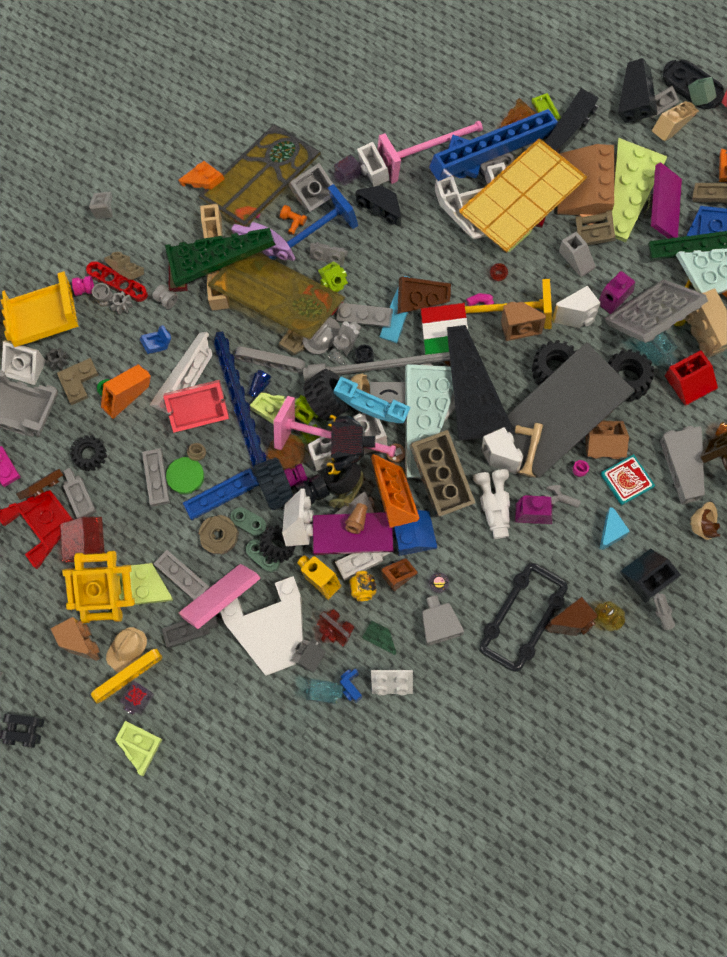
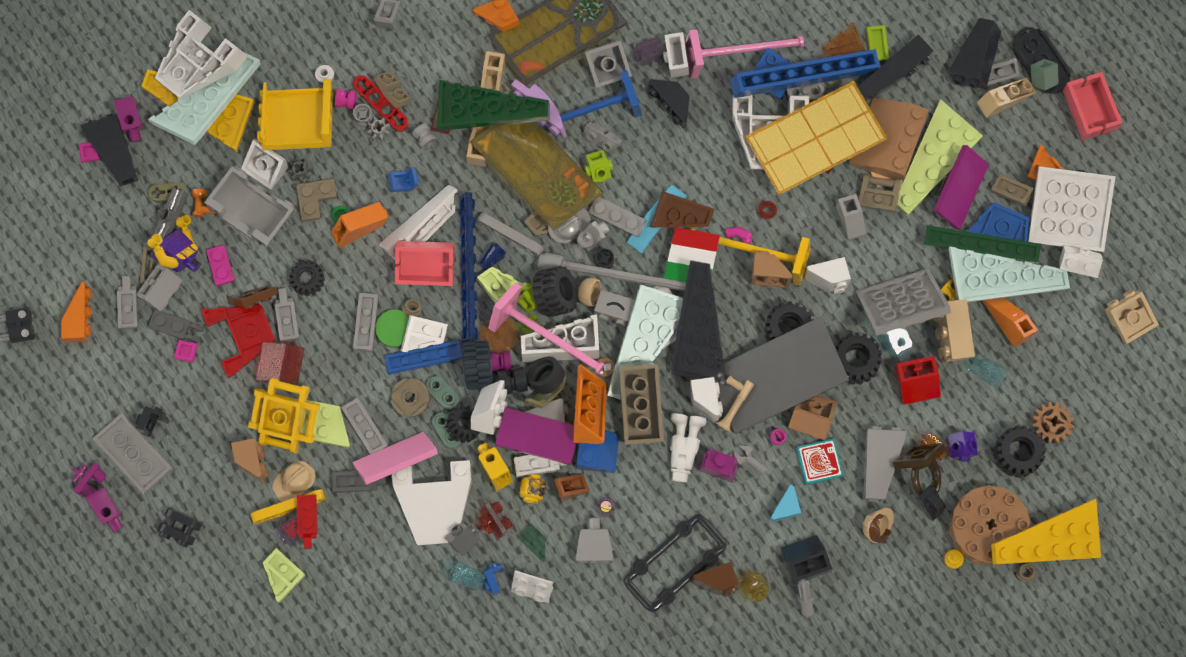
camera: 10 degrees right, 5 degrees up
(54, 267) = (320, 69): none -> white plate
(148, 682) = (307, 519): none -> red hinge
(213, 471) = (422, 333): none -> white wing
(297, 219) = (583, 91): orange piece -> none
(347, 443) = (558, 347): black torso -> none
(356, 520) = (544, 425): medium nougat cone -> none
(369, 404) = (593, 314): medium azure slope -> none
(620, 289) = (876, 268): magenta torso -> none

